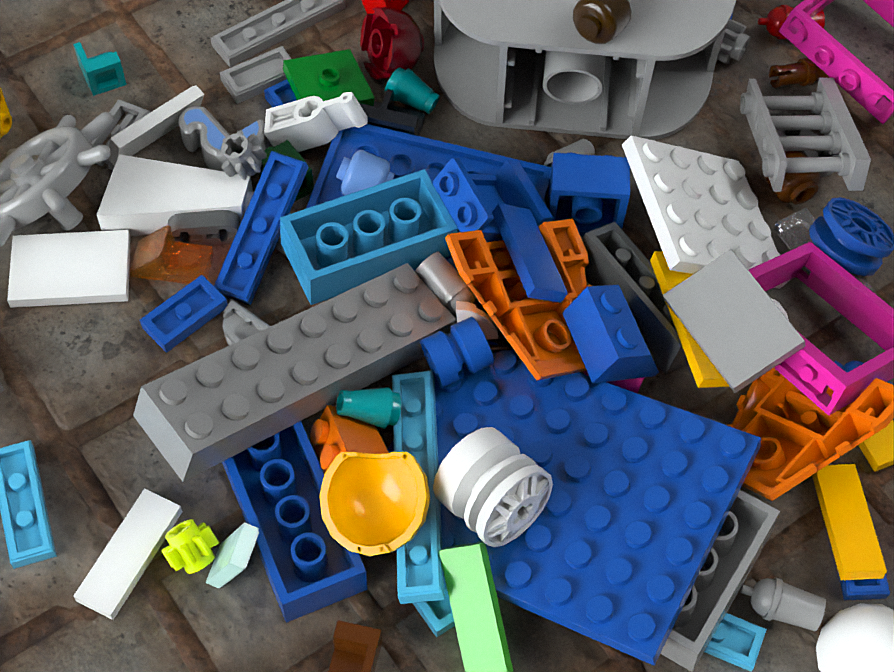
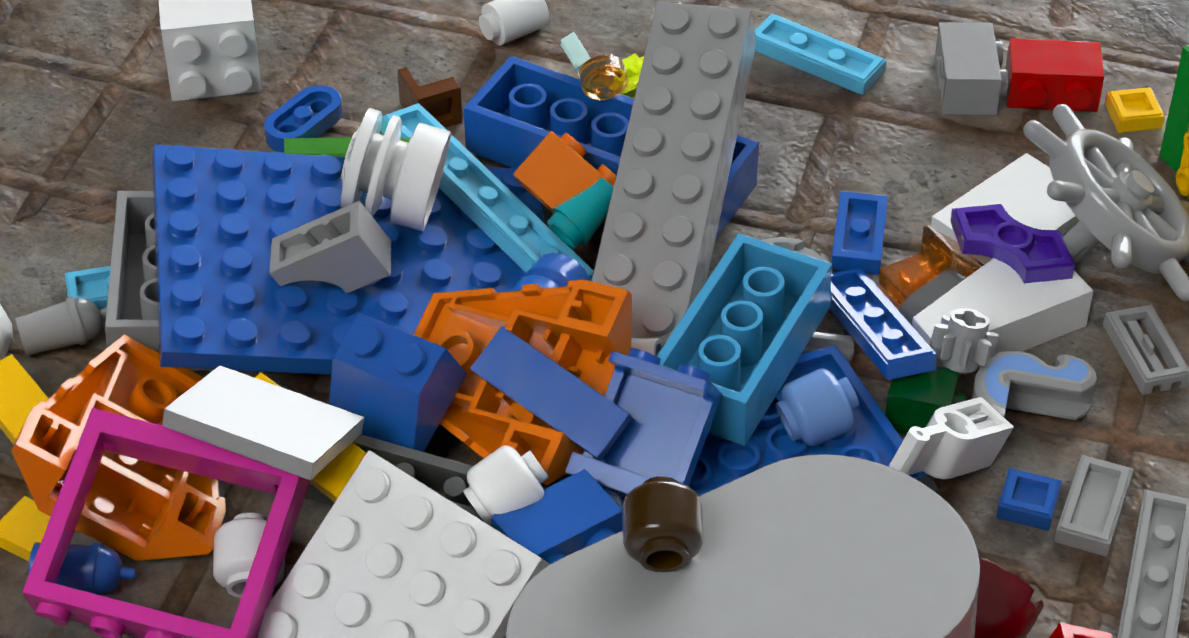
camera: 145 degrees right, 15 degrees down
(129, 221) = (1029, 251): none -> dark purple tile
(153, 124) = (1108, 354): white tile -> none
(251, 500) = (603, 77): none -> clear orange tile
(327, 77) = (1007, 516): green plate -> none
(374, 500) = (493, 125): yellow cylinder -> none
(591, 442) = (335, 249): none -> light grey arch
(605, 211) = (504, 482): none -> white head

